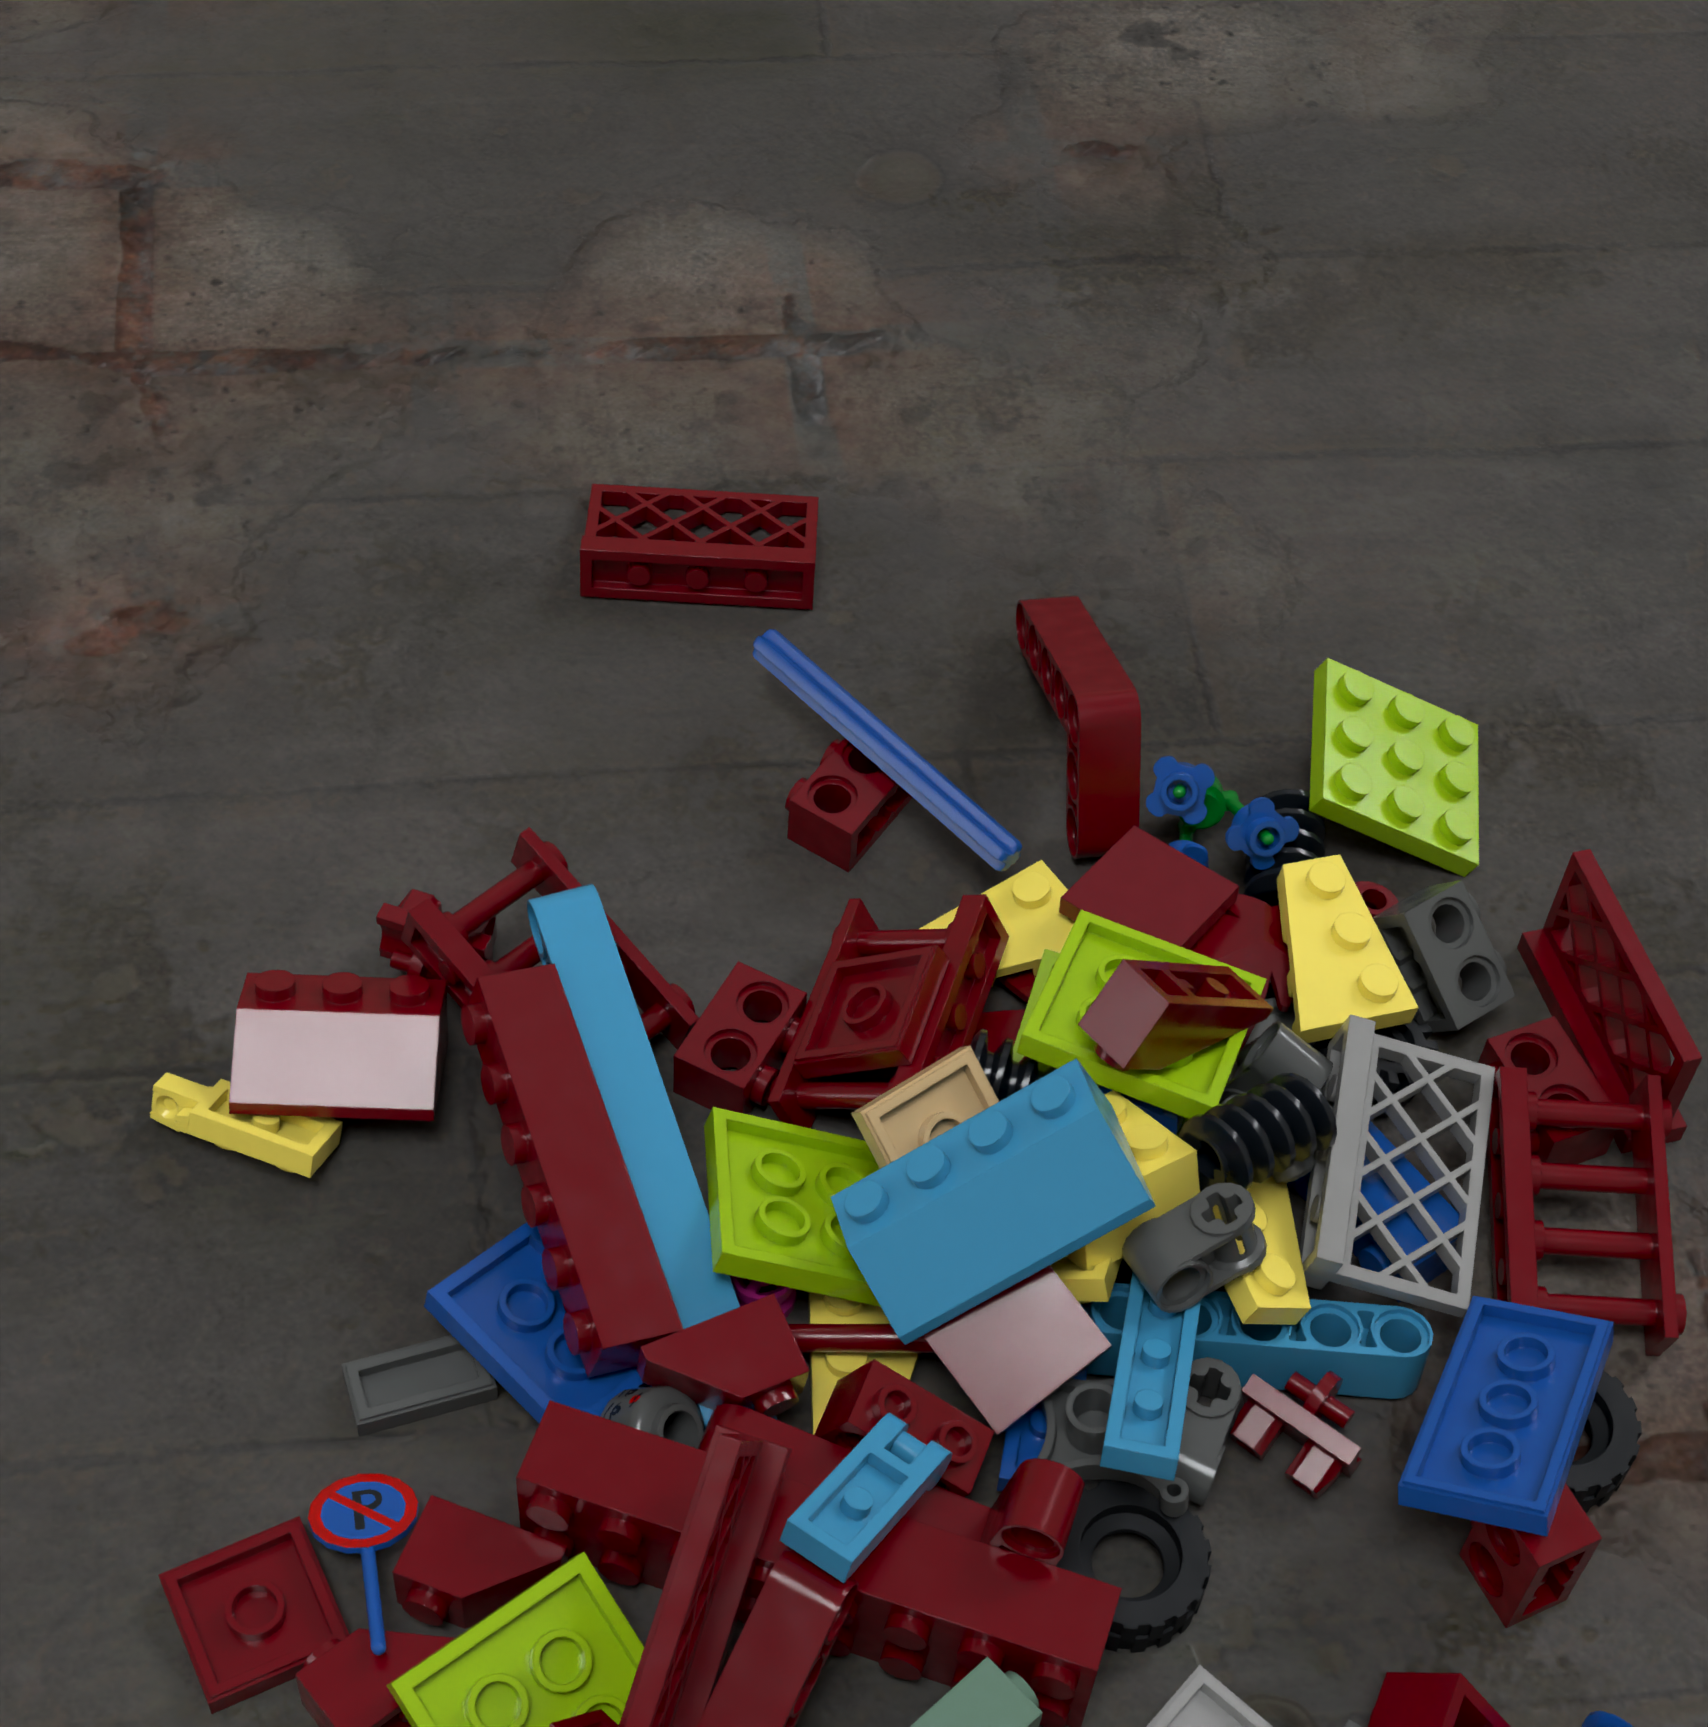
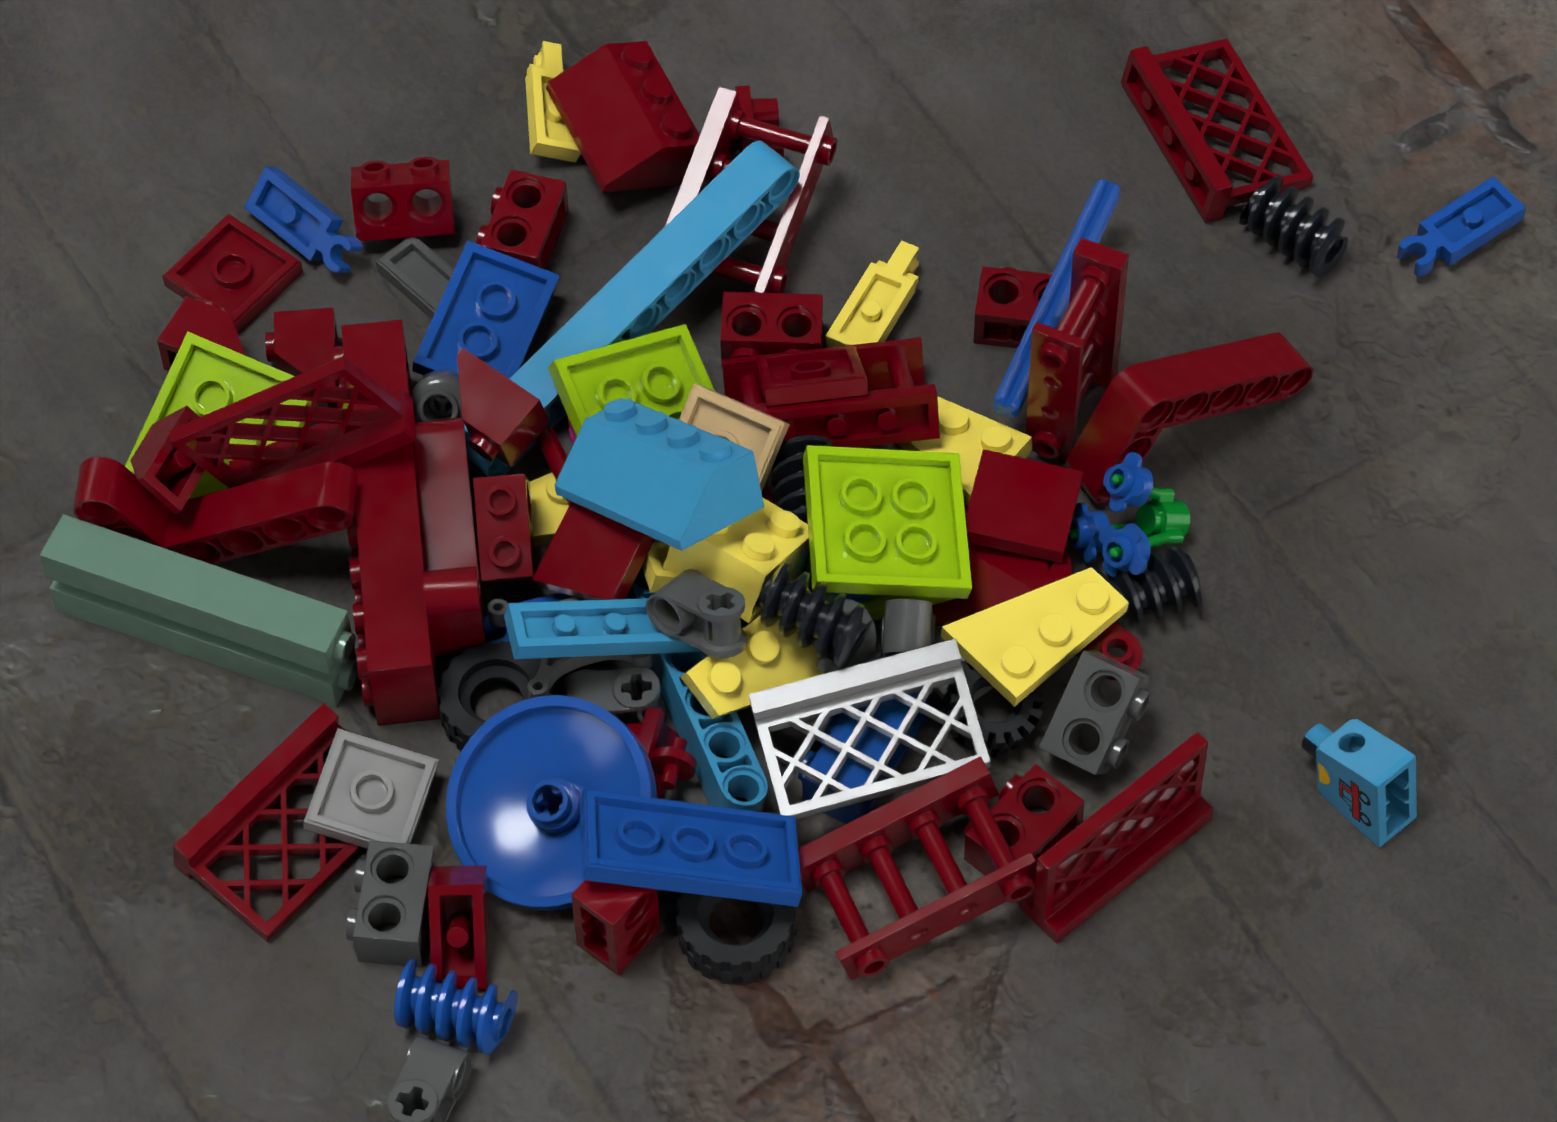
camera: 70 degrees right, 5 degrees up
(234, 1485) = (300, 219): none -> blue plate
(297, 1346) = (404, 211): none -> dark red brick
(363, 1517) = (305, 288): piece -> none
(432, 1223) = (526, 218): none -> dark red brick
(569, 1168) = (586, 259): dark red brick -> none
(756, 924) = (877, 300): none -> light yellow hinge
(864, 1497) = (411, 496): dark azure plate -> none
(880, 527) = (1294, 227): none -> black piece
(956, 736) = (1078, 351): none -> dark red fence
(957, 414) = (1463, 226): none -> blue plate
(1167, 1012) = (874, 521): slope -> none
(1395, 768) = (1274, 629): lime plate -> none
(1395, 1573) = (515, 776): none -> blue dish
(1611, 773) = (1365, 777): none -> dark azure torso

